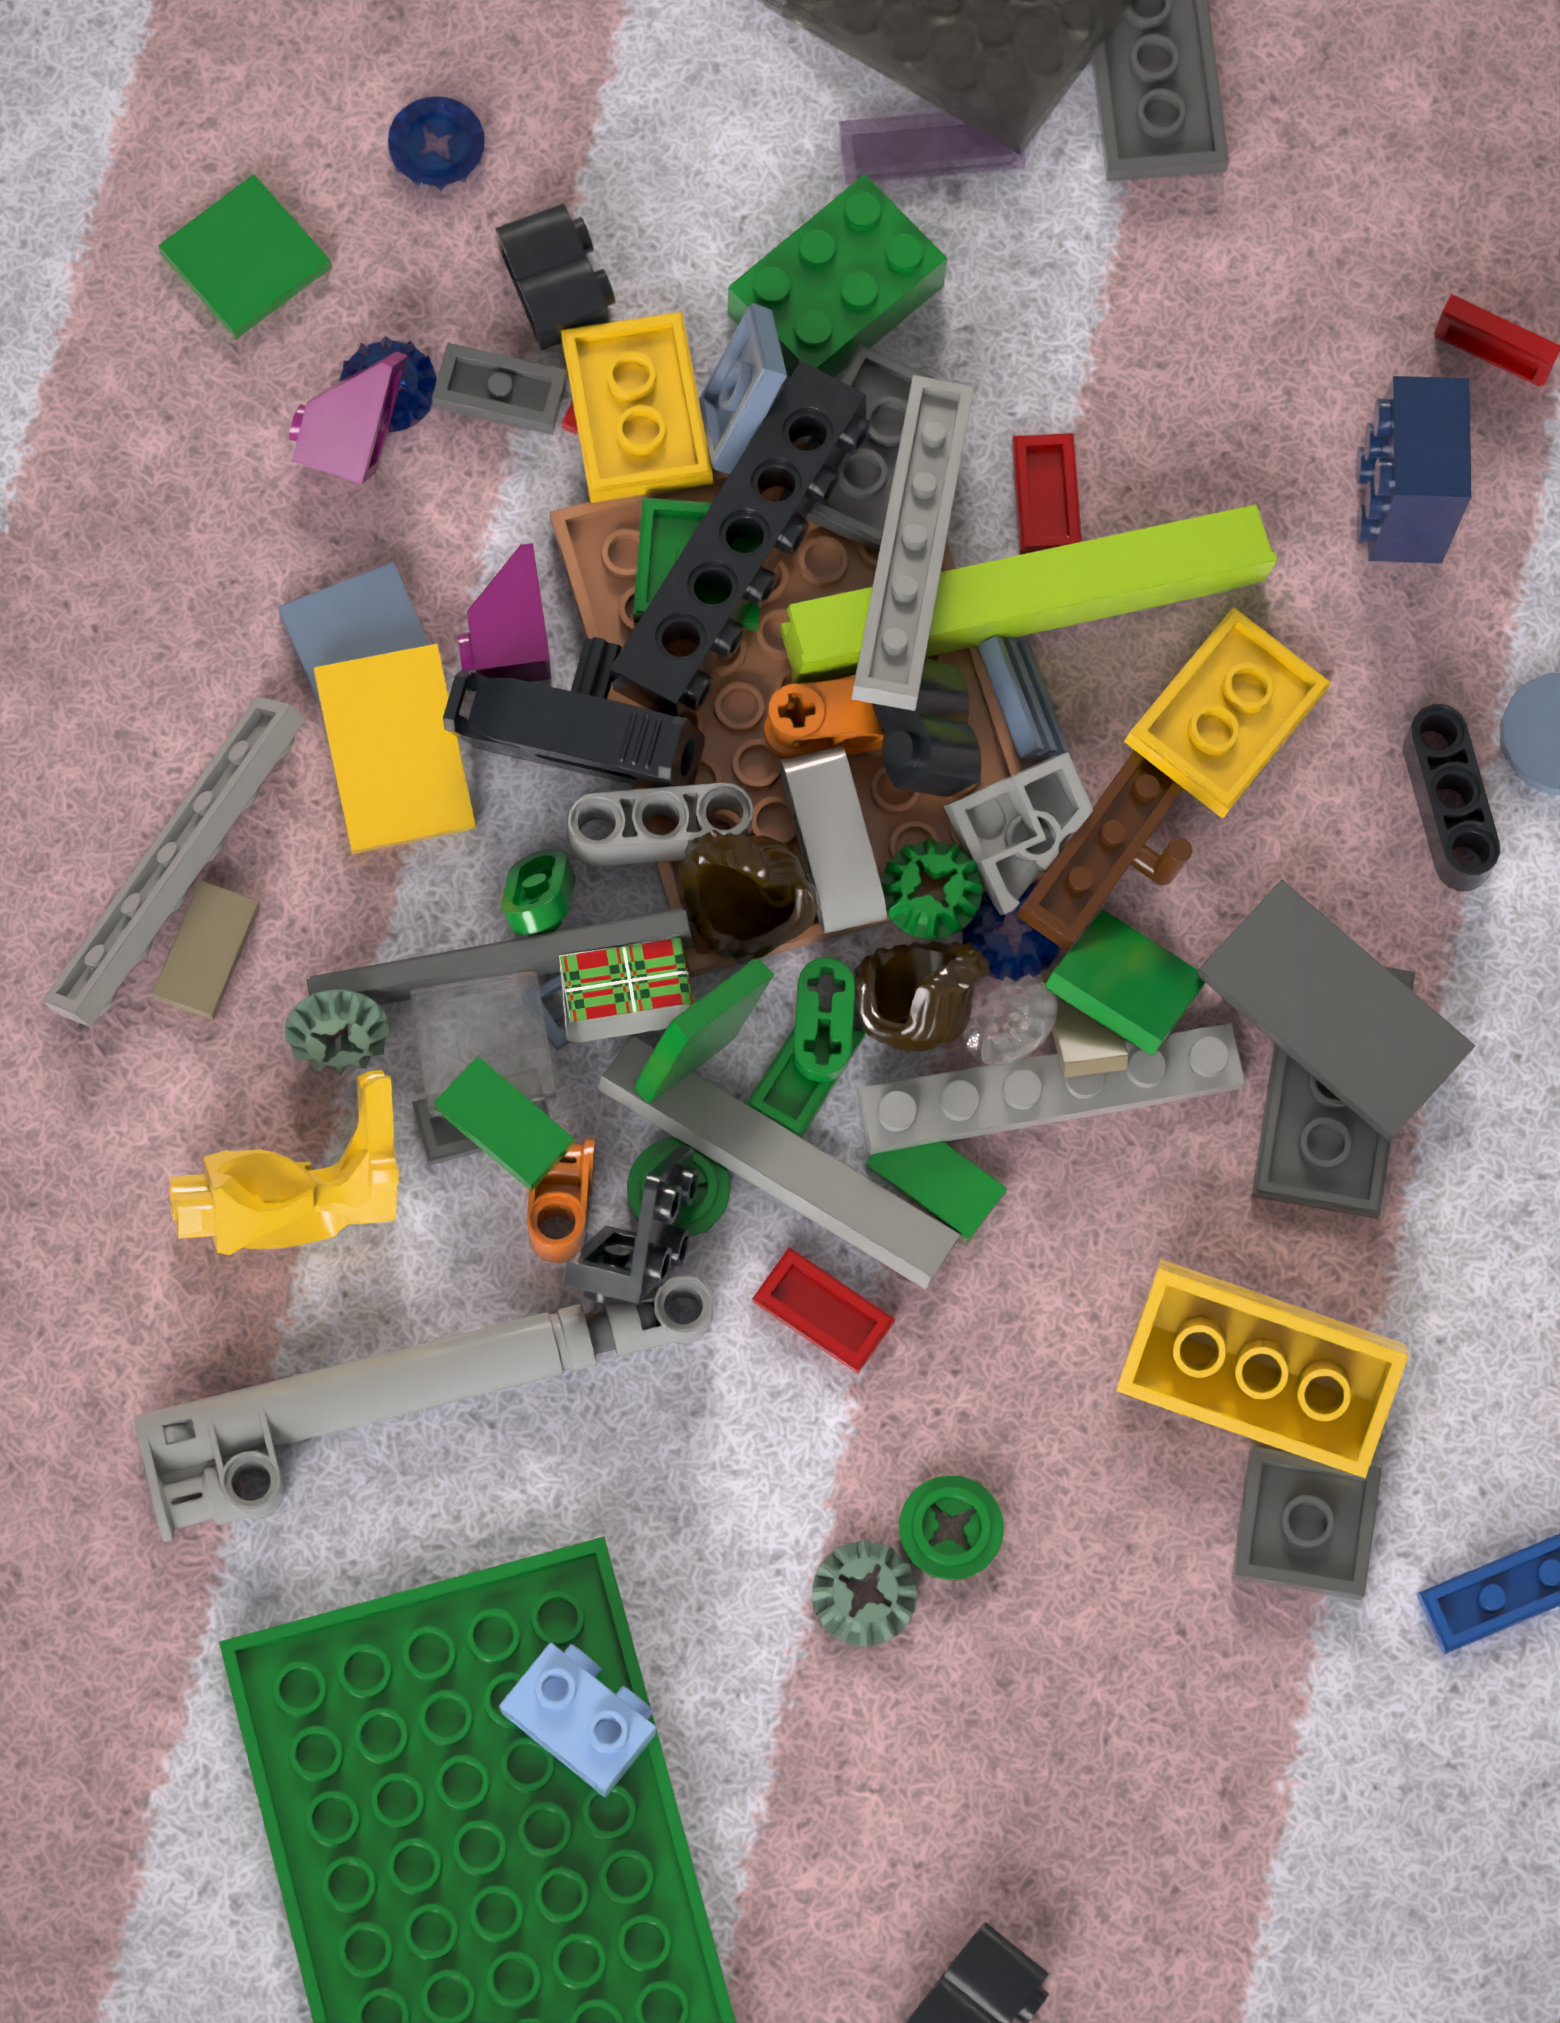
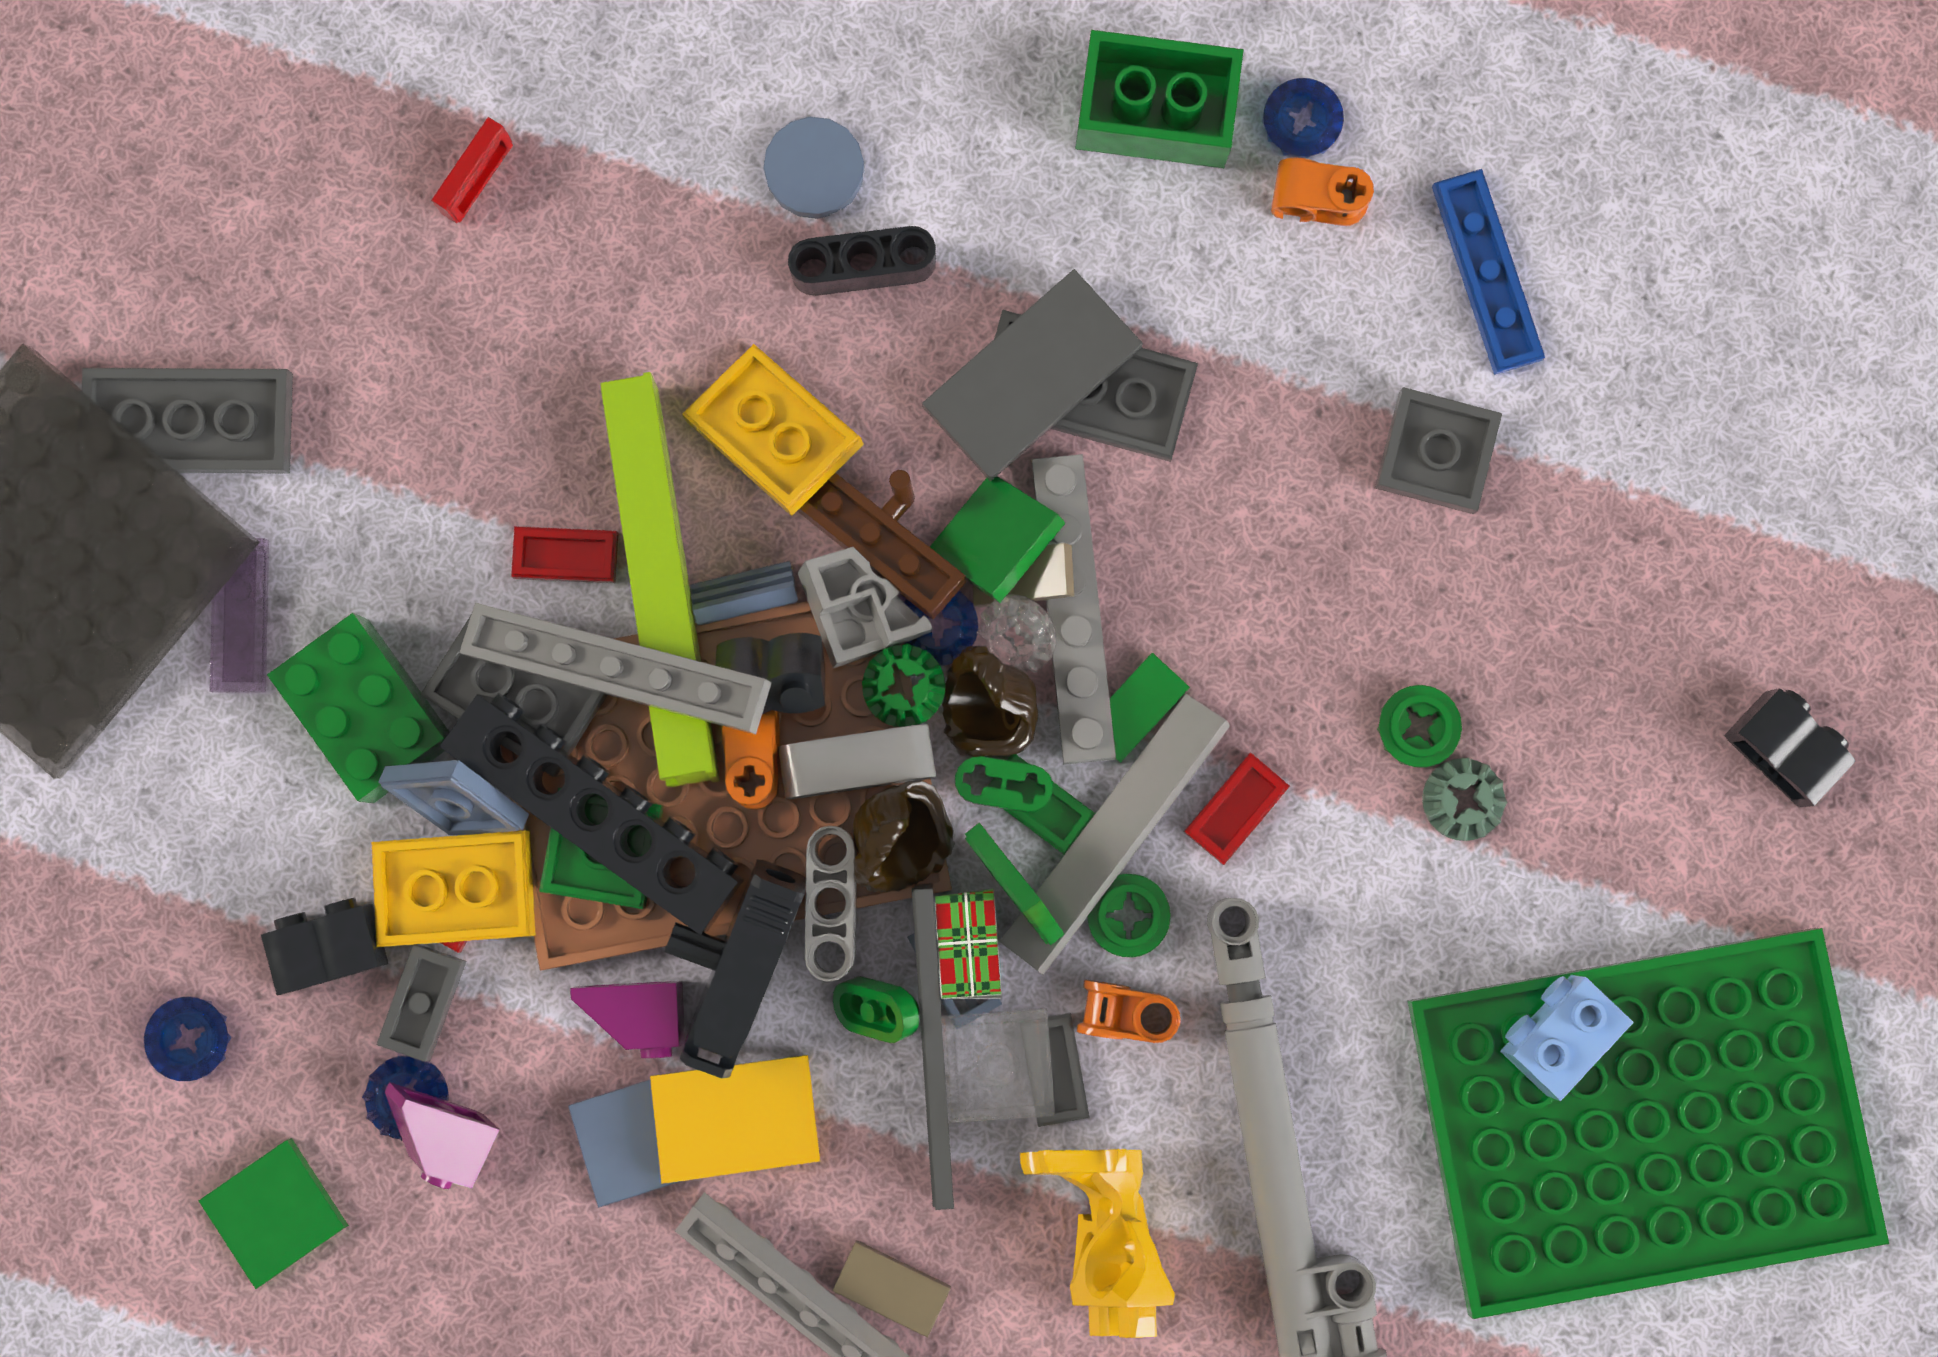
camera: 80 degrees left, 10 degrees up
(326, 1014) = (977, 1200): sand green gear -> none
(504, 1123) = (1075, 1055): green tile -> none
(631, 1264) = (1193, 959): black bracket -> none
(1263, 1368) = (1318, 467): yellow slope -> none
(1415, 469) = (589, 245): dark blue brick -> none

